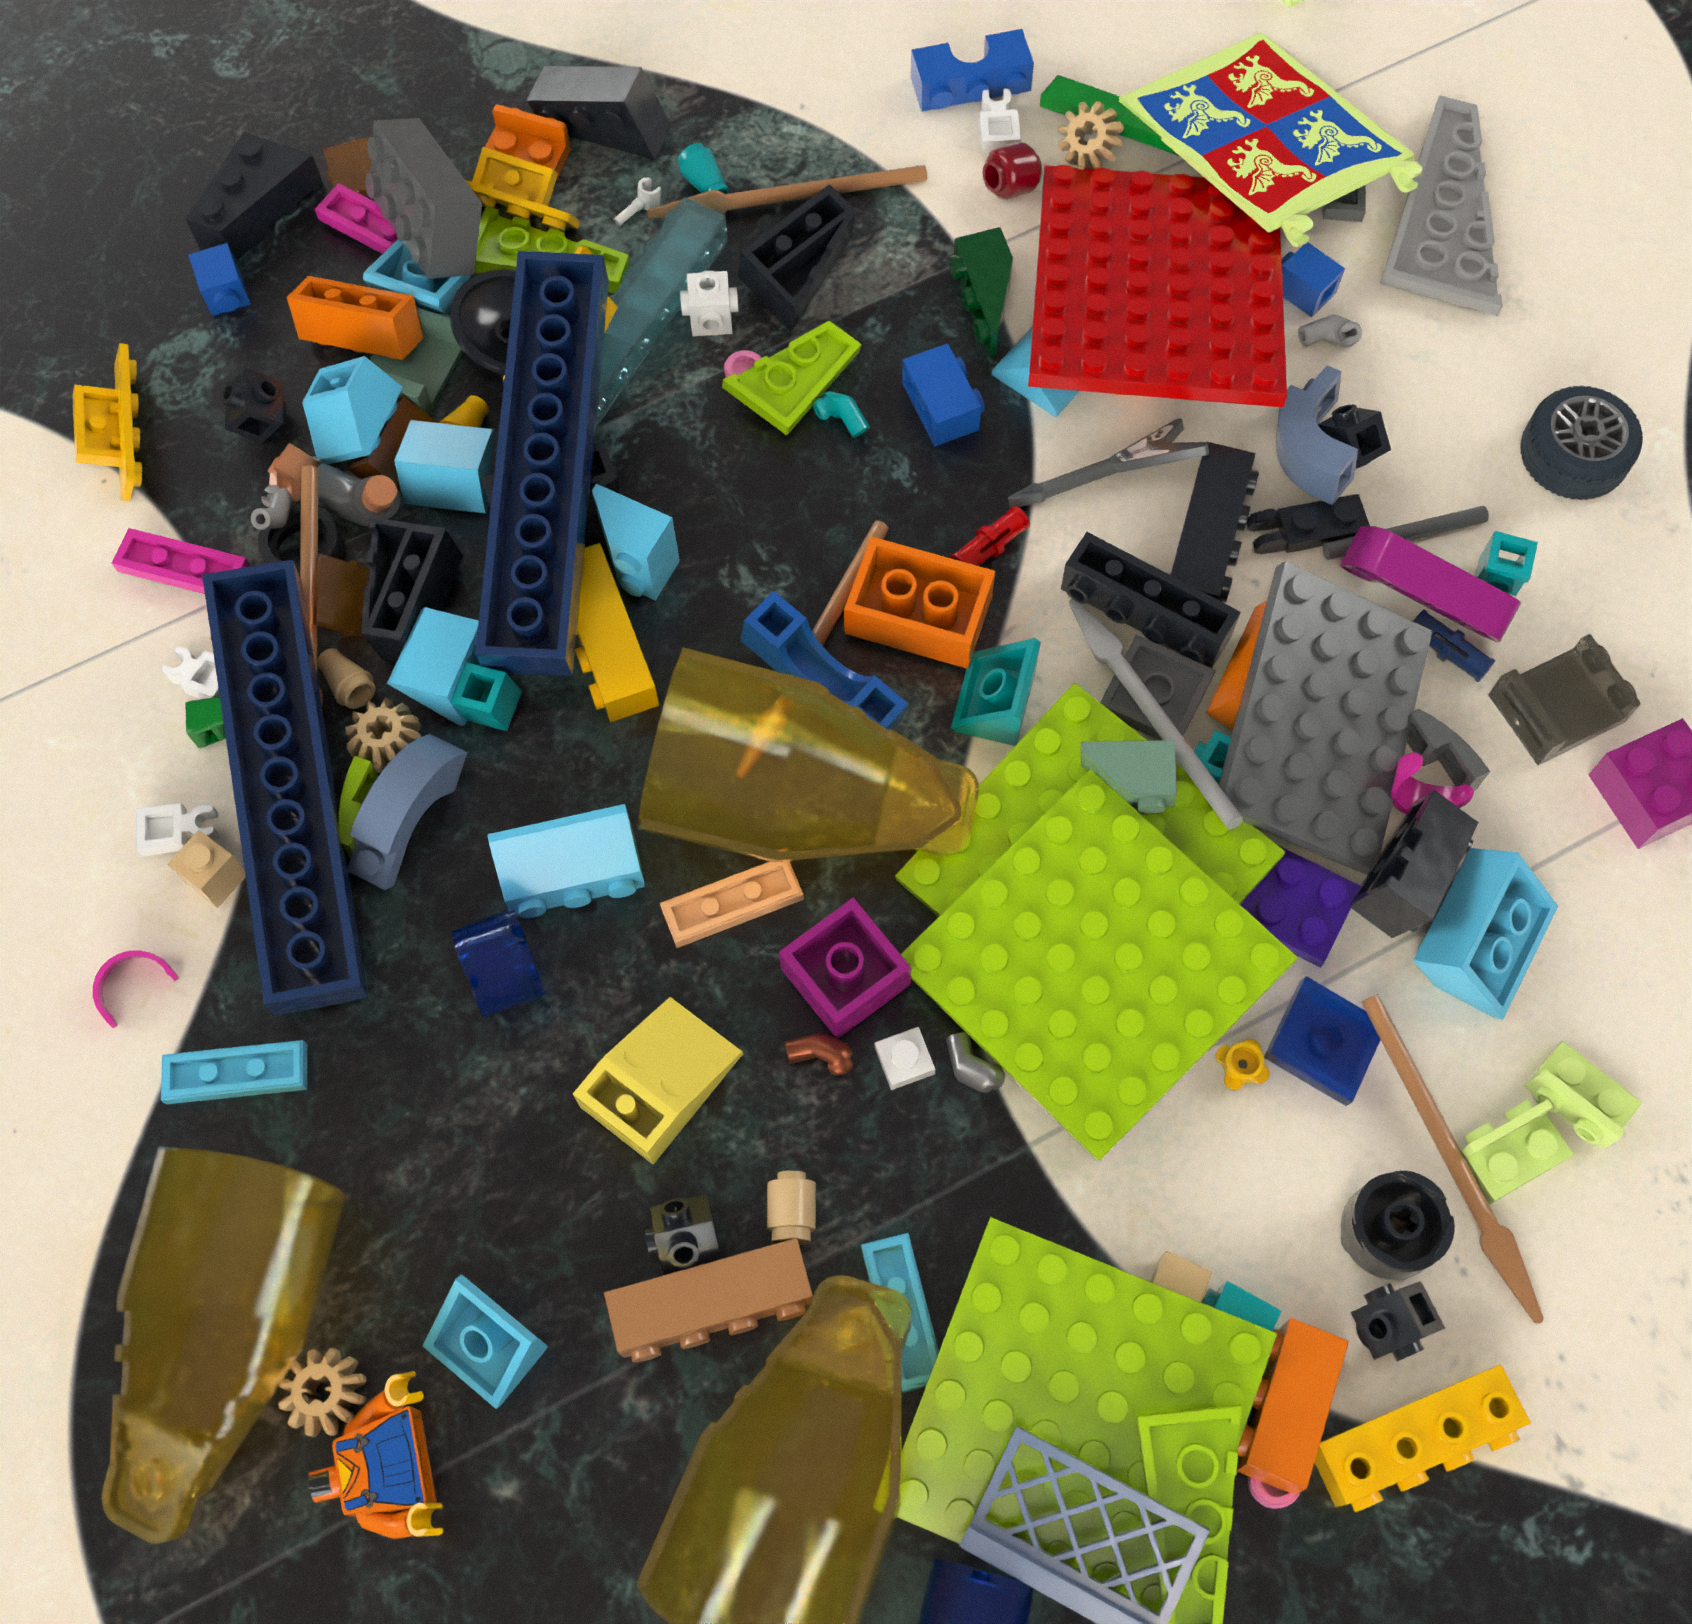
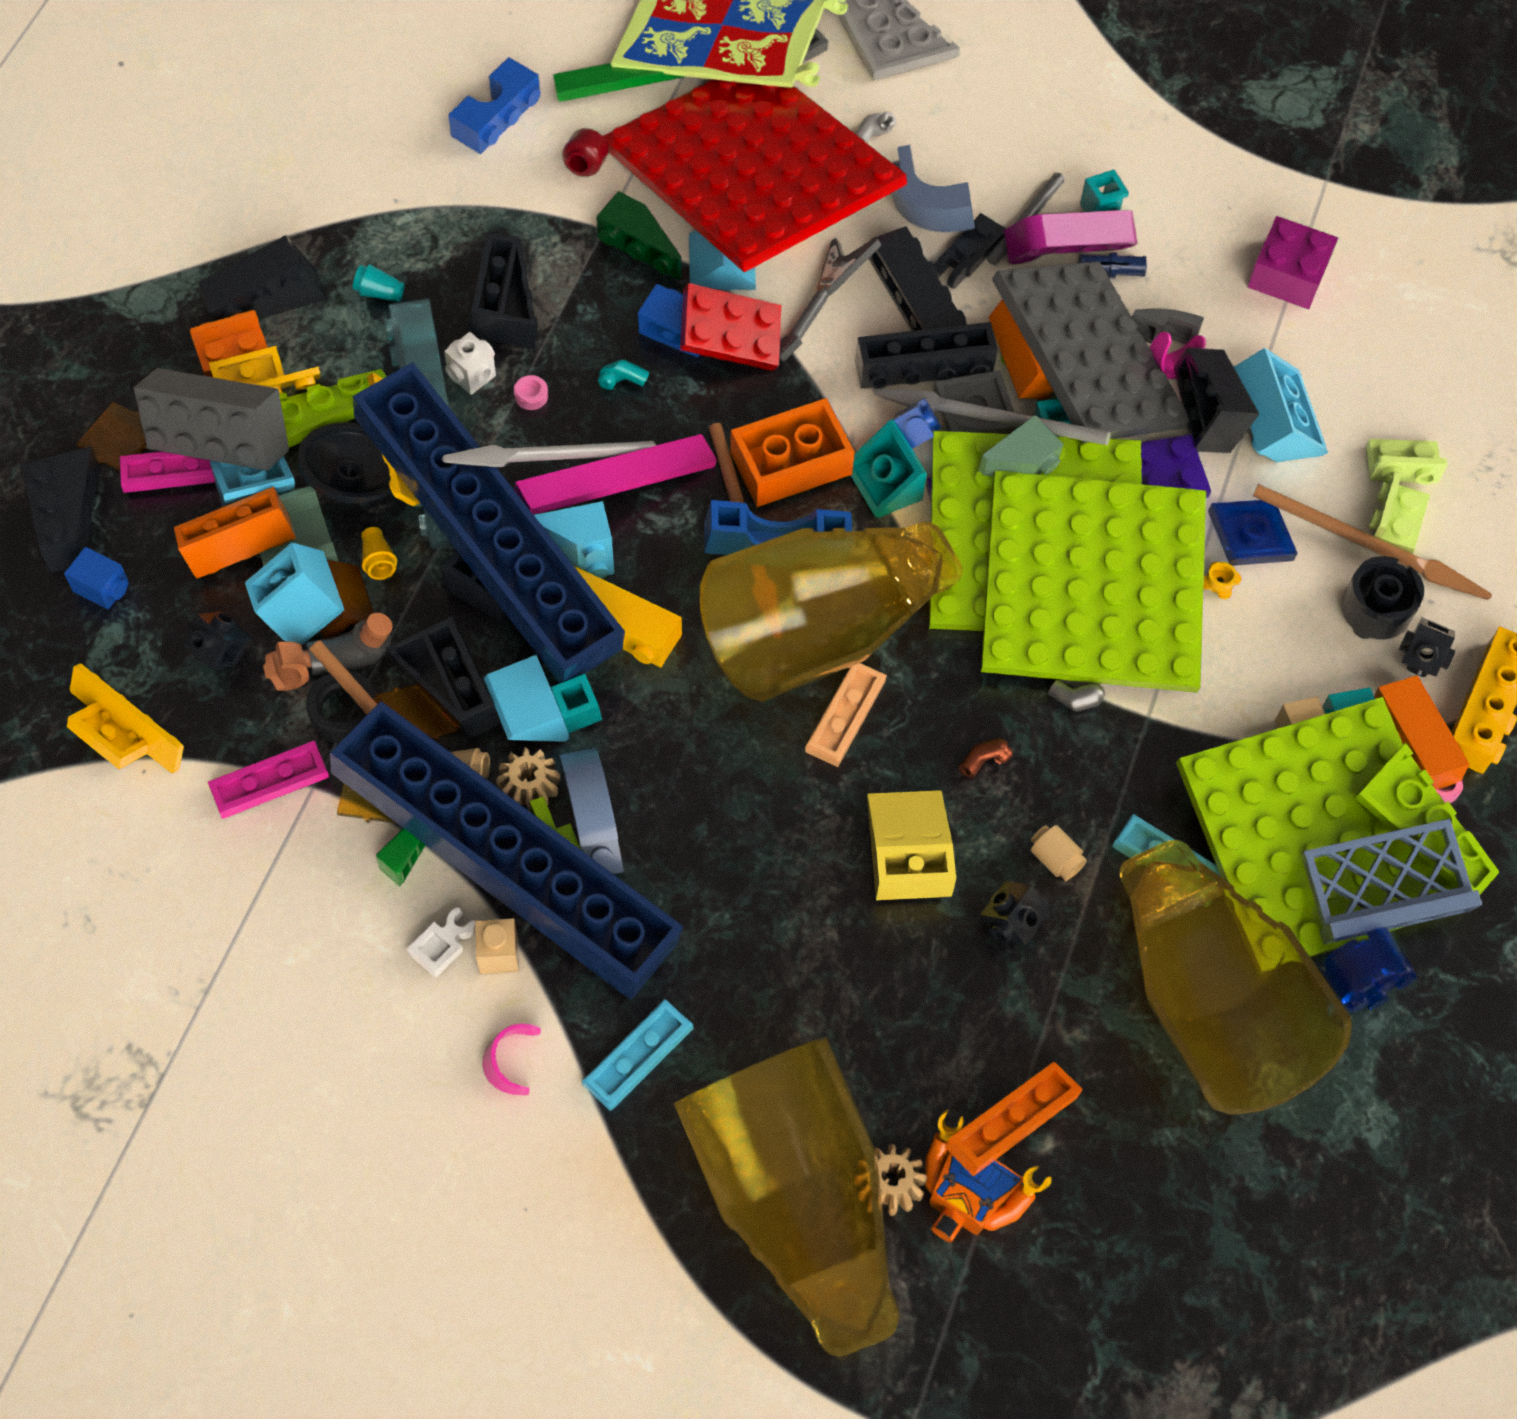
camera: 45 degrees left, 5 degrees down
(193, 675) = (364, 835): white plate -> none
(279, 506) = (312, 684): light grey arm -> none
(445, 465) = (399, 582): medium azure slope -> none
(476, 1437) = (1013, 1118): none -> orange plate
(482, 1342) = (957, 1069): medium azure slope -> none
(498, 962) = (750, 850): clear blue brick -> none
(567, 861) = (732, 761): medium azure slope -> none
(599, 401) = (498, 457): none -> light grey piece
(646, 200) = (349, 328): white hand -> none
(709, 1299) = (1062, 938): medium nougat brick -> none
(722, 202) = (452, 256): medium nougat piece -> none
(731, 503) = (615, 474): none -> dark pink tile
(791, 380) = (572, 372): lime wing -> none
(845, 968) = (959, 693): magenta brick -> none
(904, 1058) = (1035, 722): white plate -> none
(979, 435) = (730, 327): none -> plate
(992, 539) = (792, 387): red pin -> none
(997, 122) = (547, 130): white plate -> none
(1069, 662) = (917, 423): none -> blue brick
(1085, 123) = (607, 95): tan gear -> none
(1310, 278) = (836, 99): blue brick -> none
(1359, 429) = (951, 171): black brick -> none
(1565, 700) = (1200, 252): clear smoke panel -> none
(1581, 442) = (1077, 99): black wheel -> none

